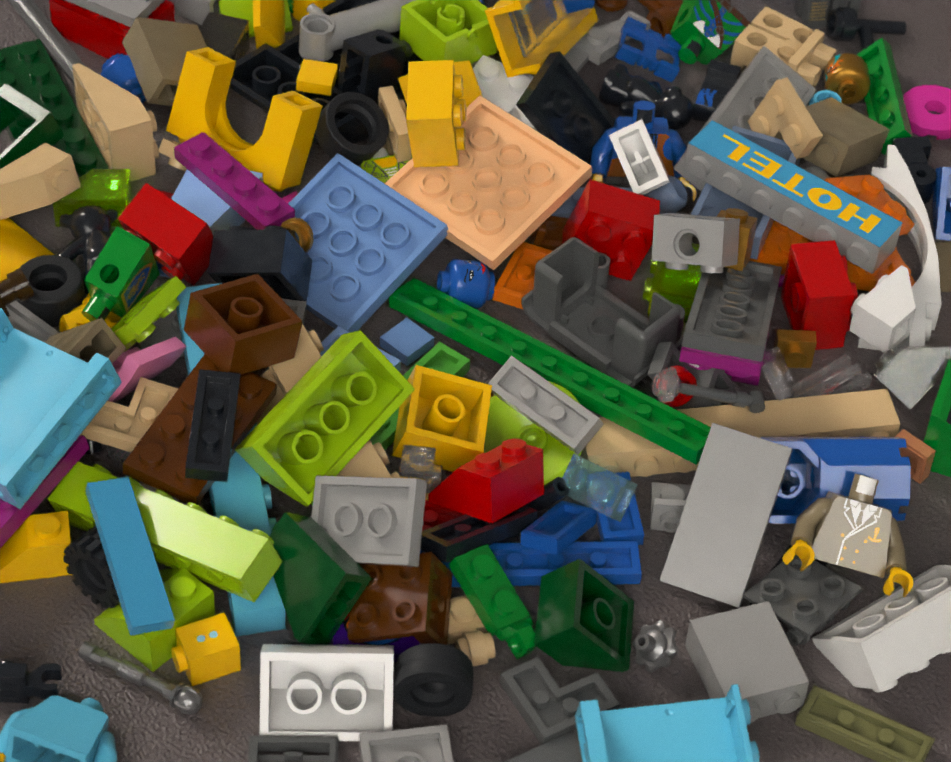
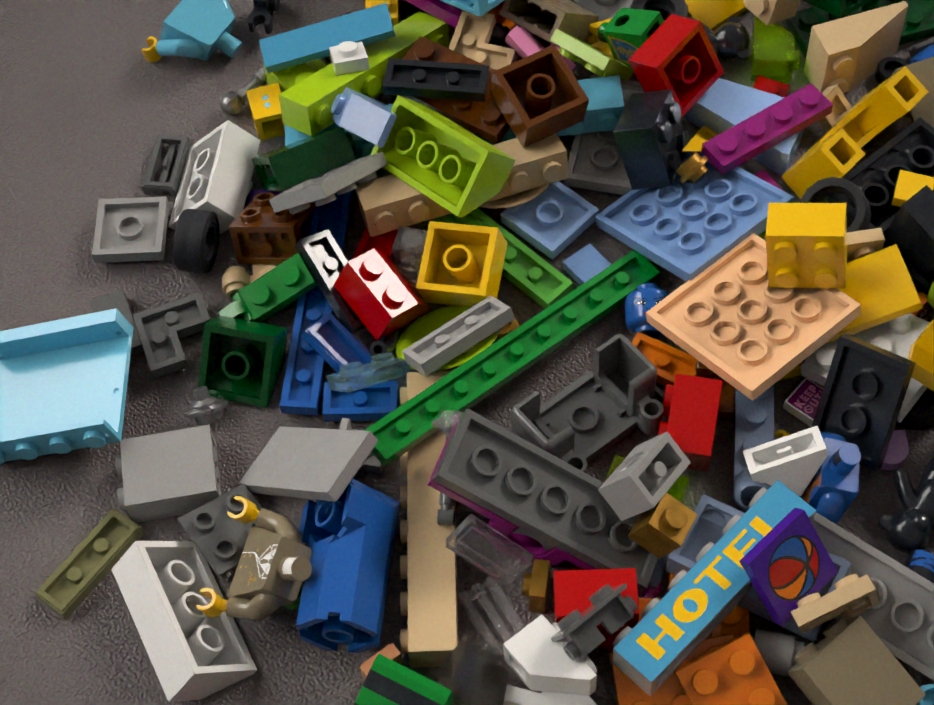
camera: 105 degrees right, 10 degrees up
(168, 523) = (349, 57): none -> white plate
(275, 486) = (363, 116): none -> slope
(766, 139) = (788, 565): none -> tile
(856, 259) = (580, 629): none -> dark grey hinge

